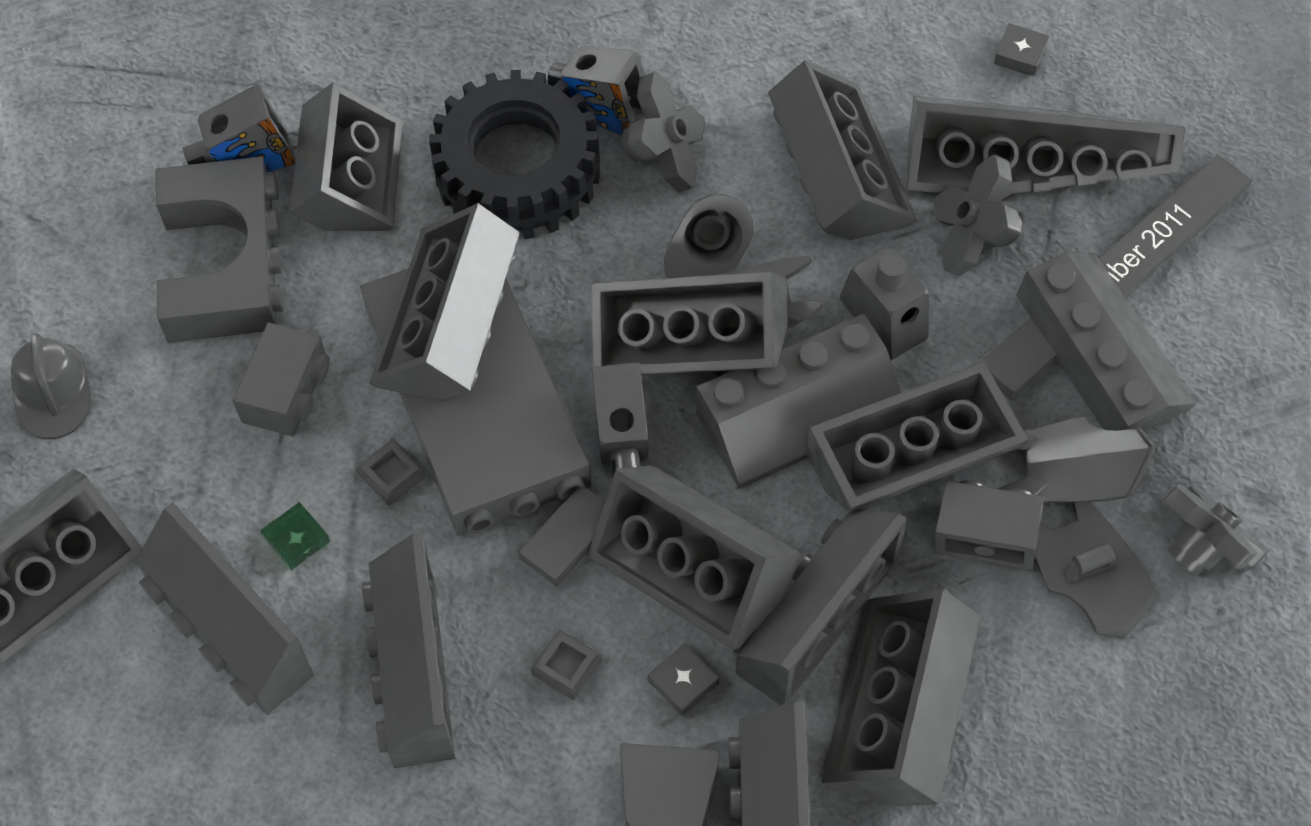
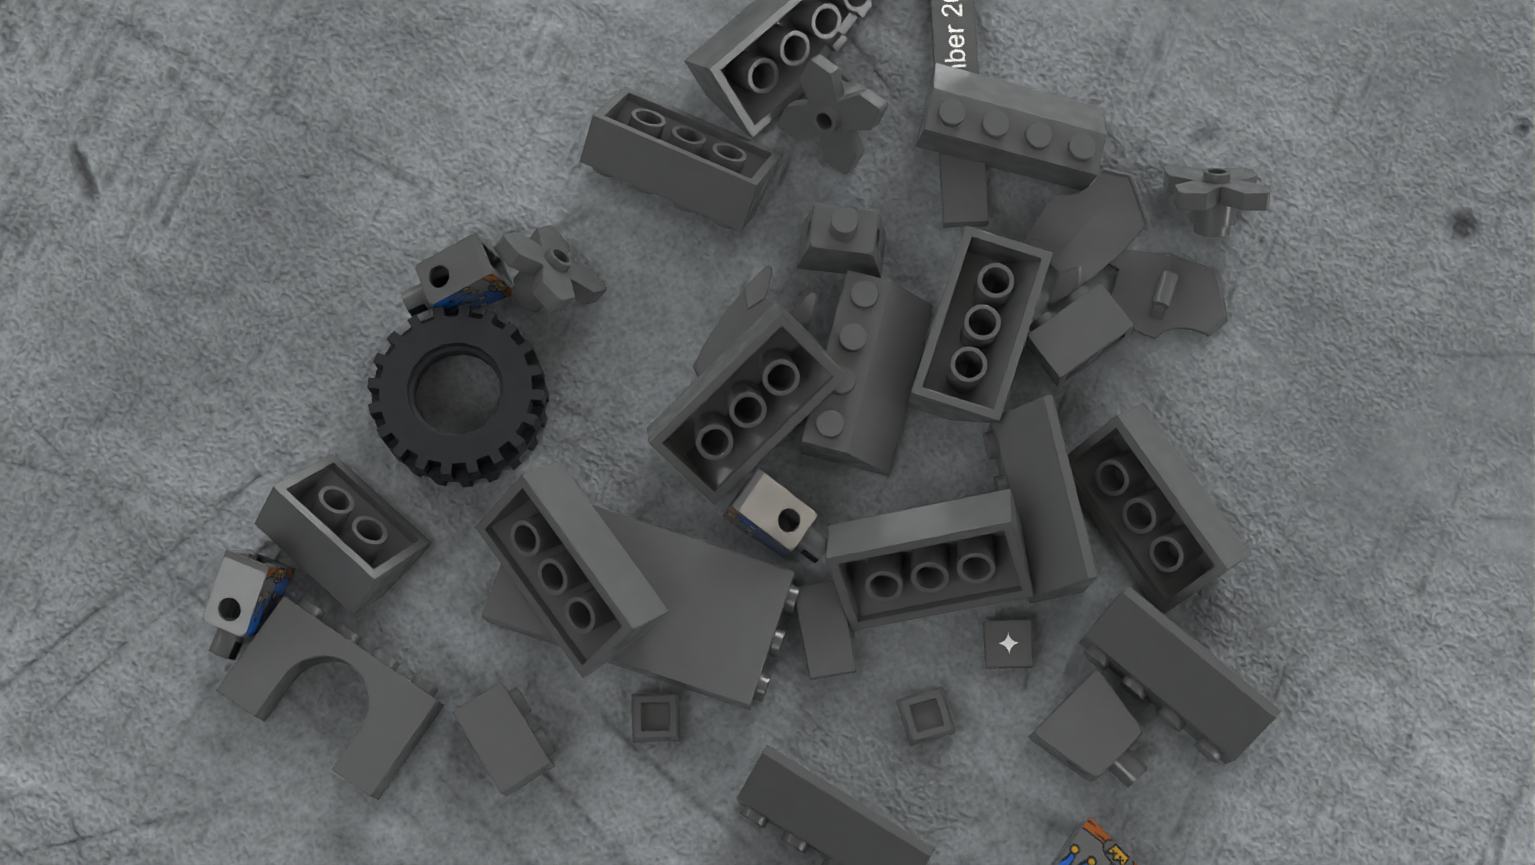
camera: 50 degrees left, 15 degrees up
(295, 536) = (648, 831): clear green tile -> none
(709, 238) = (676, 322): dark grey piece -> none

